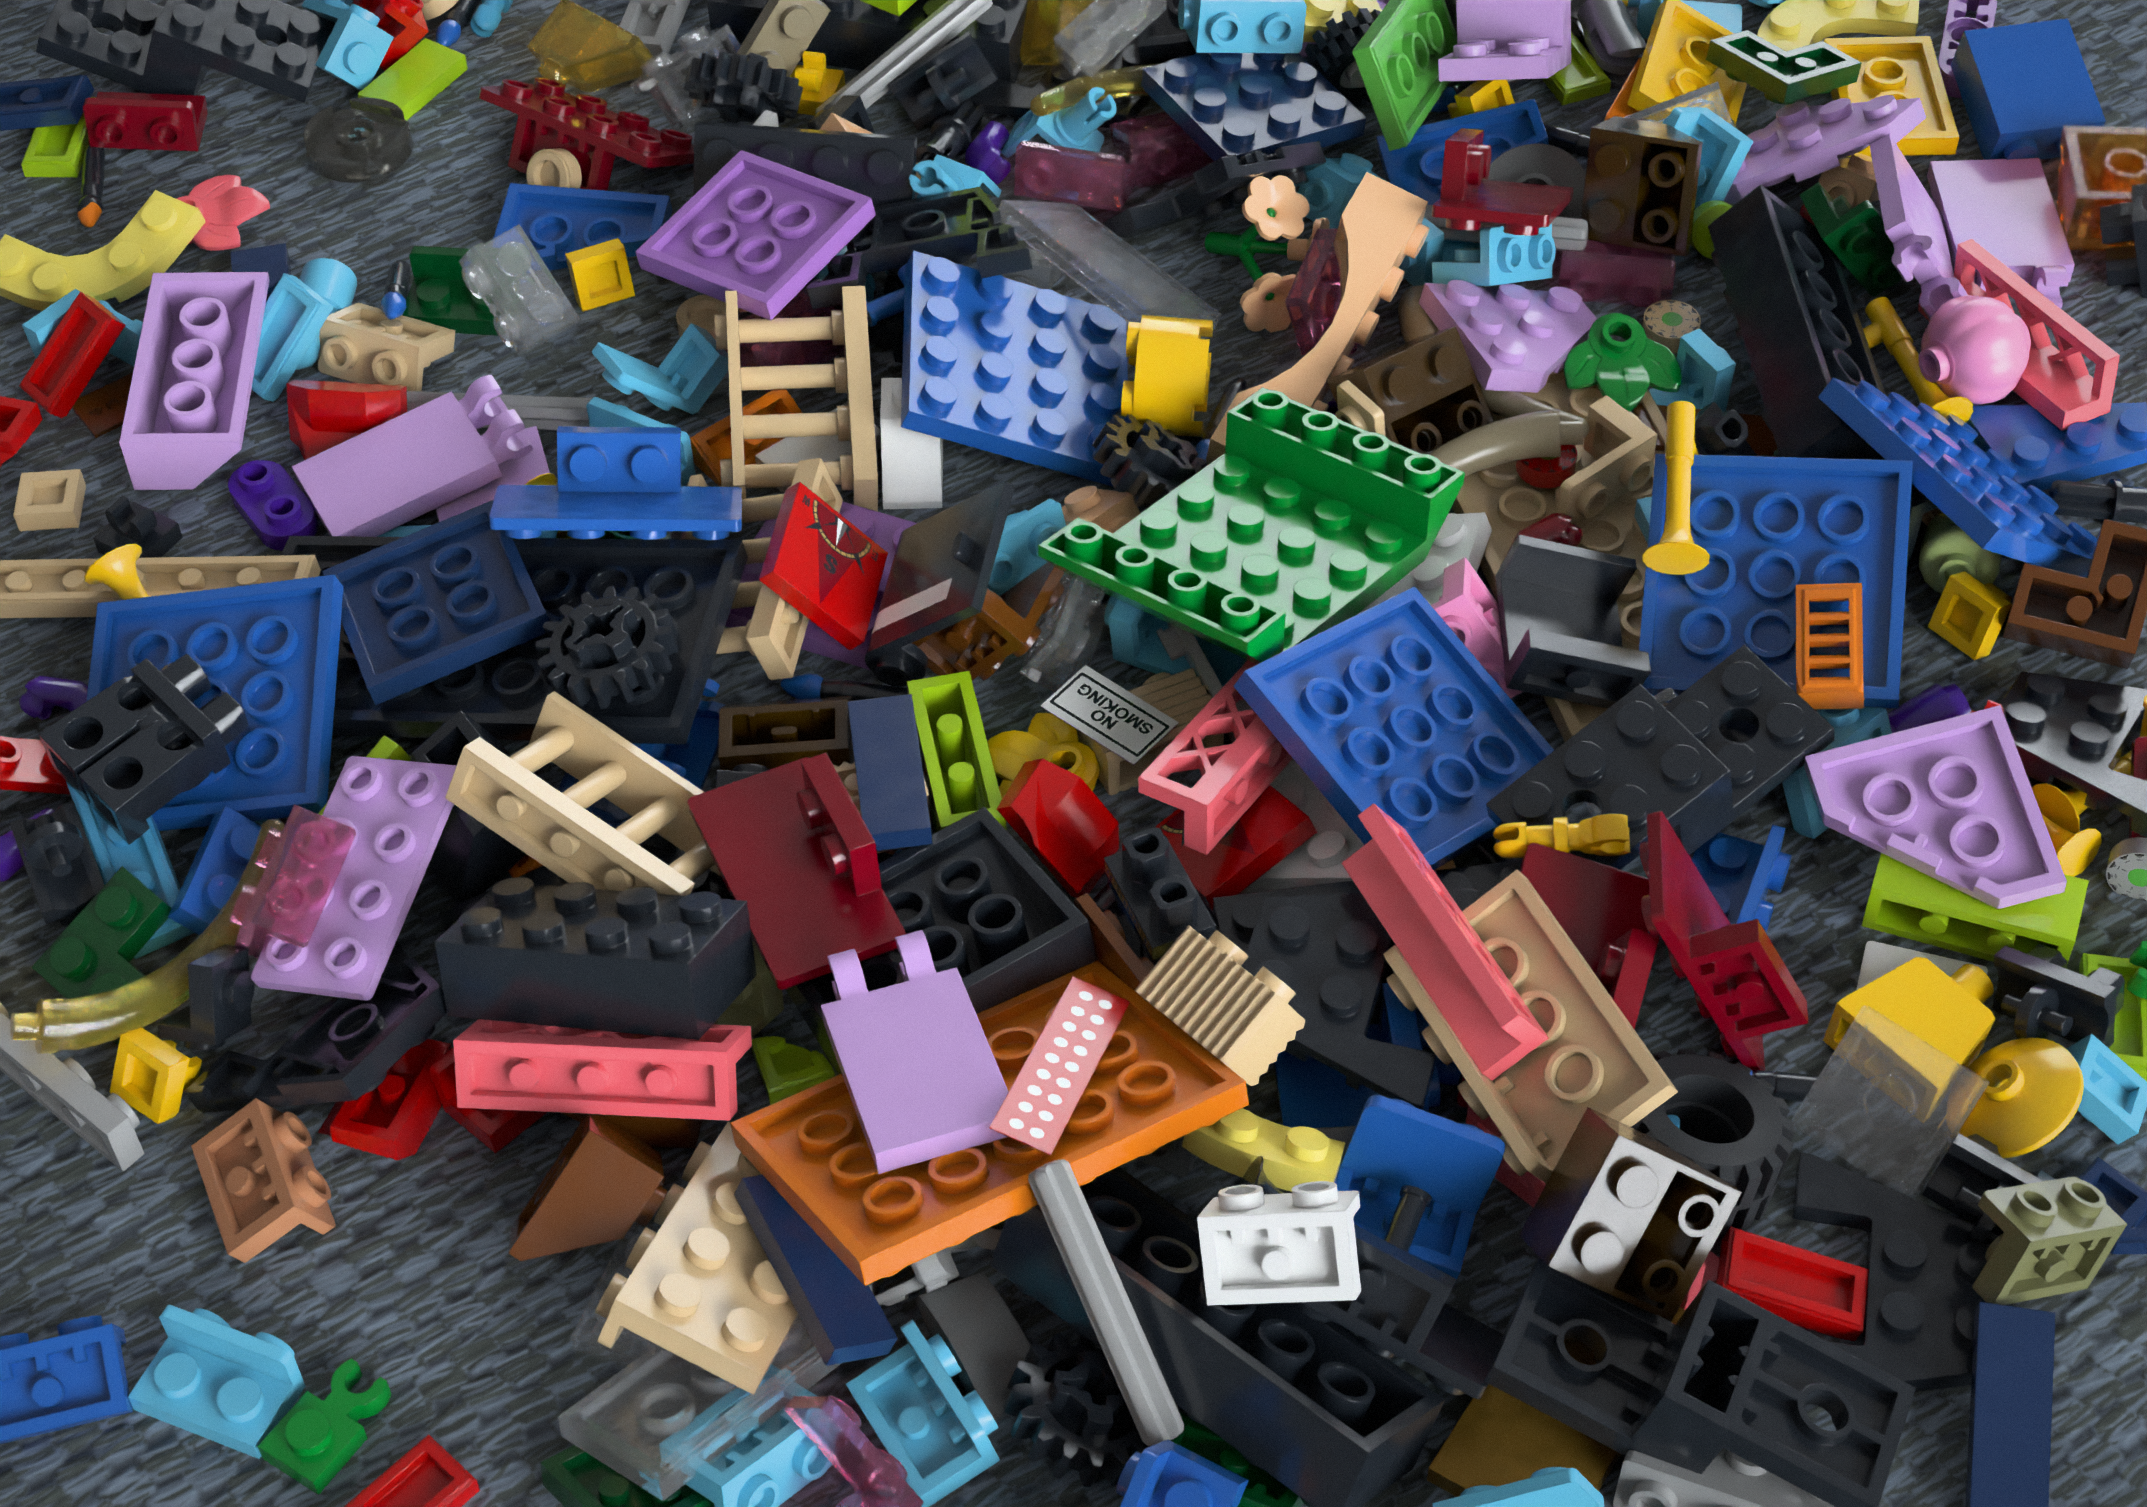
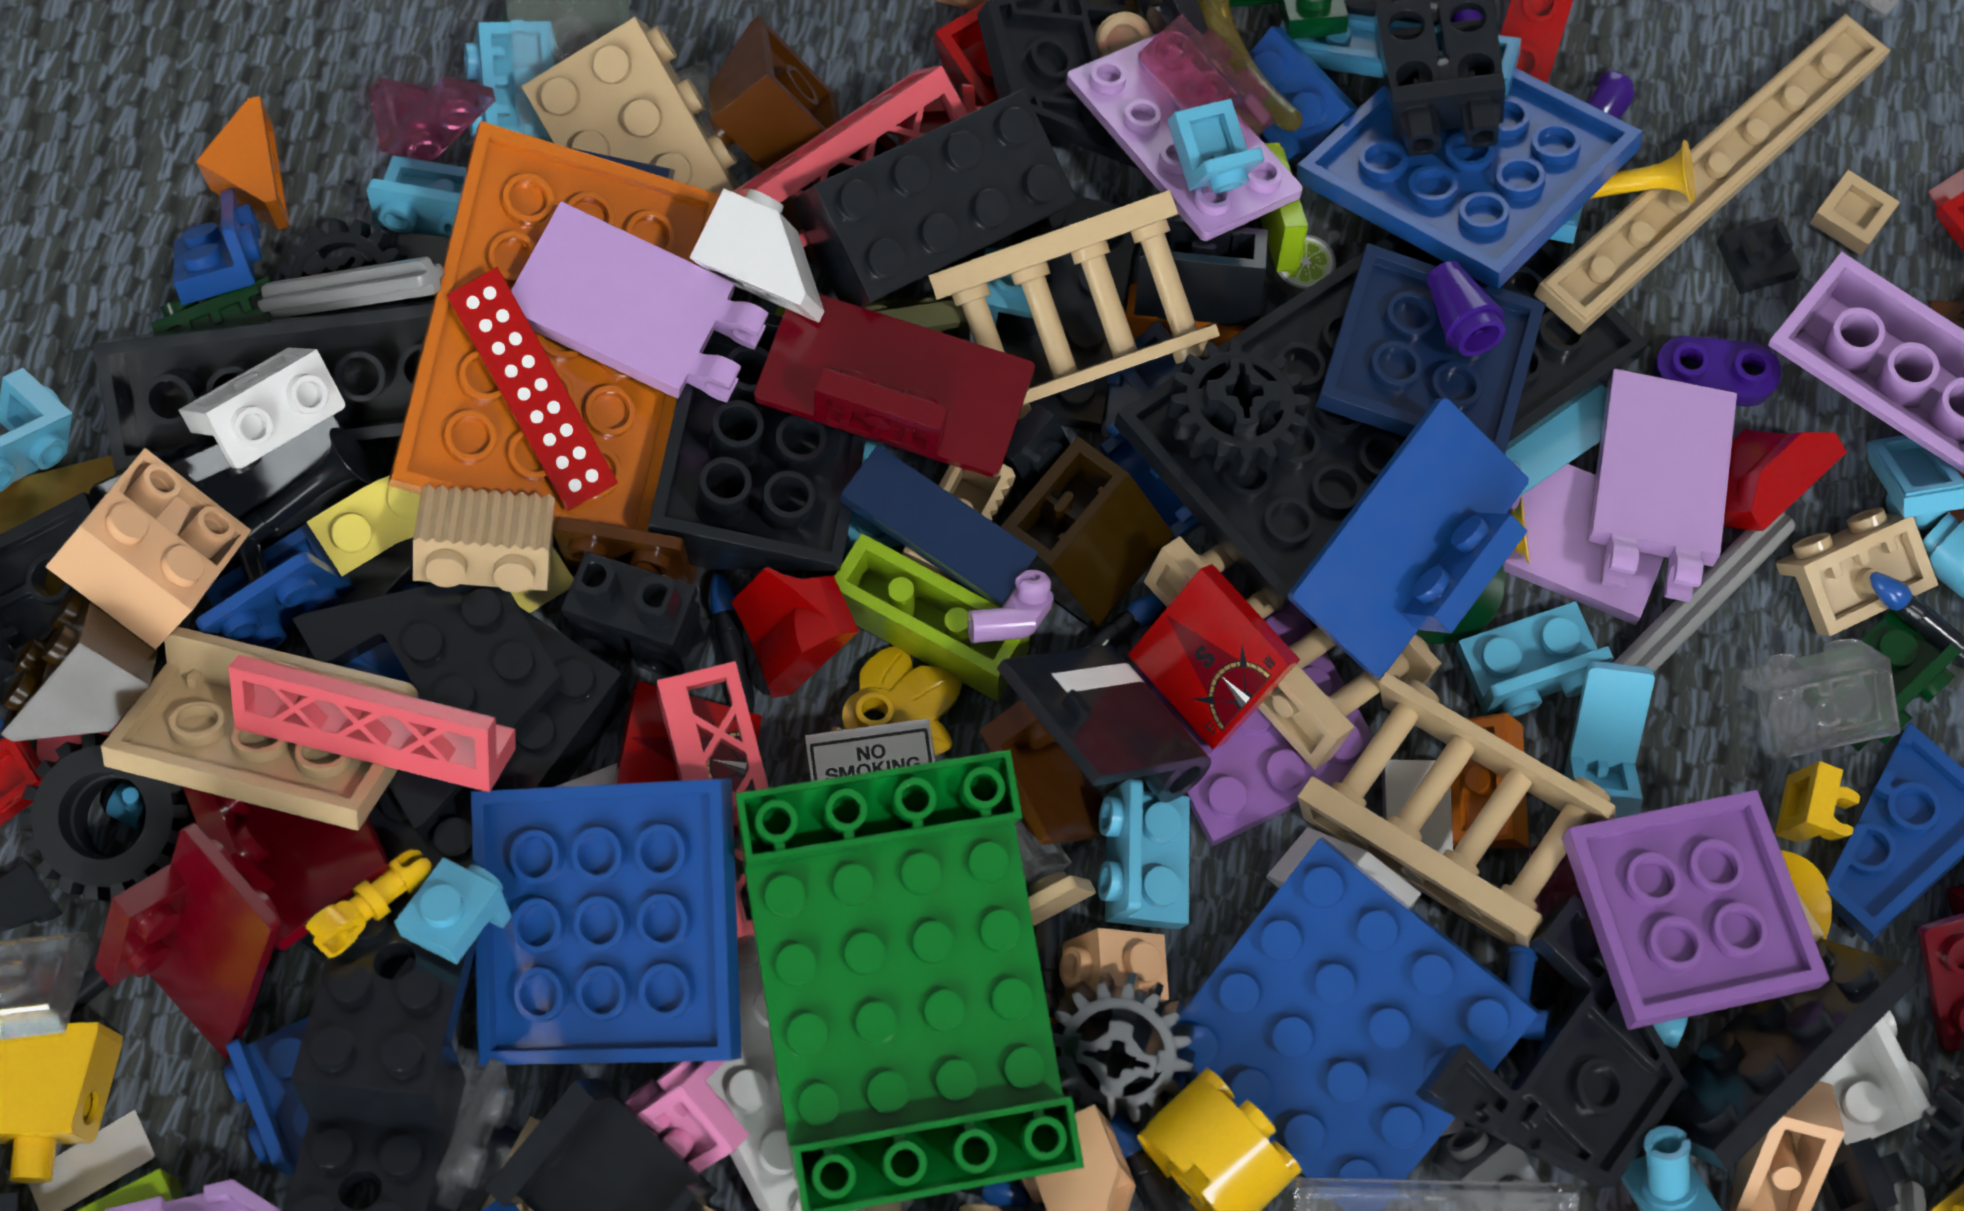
camera: 130 degrees right, 20 degrees up
(264, 1029) = (1120, 32): none -> tan tile
(382, 790) = (1213, 147): none -> medium azure bracket
(386, 578) = (1466, 312): none -> dark purple cone
(781, 993) = (758, 252): none -> white slope
(912, 676) = (1019, 615): none -> lavender arm
(1487, 1215) = (149, 549): none -> light nougat slope
(1507, 790) = (453, 909): none -> medium azure bracket

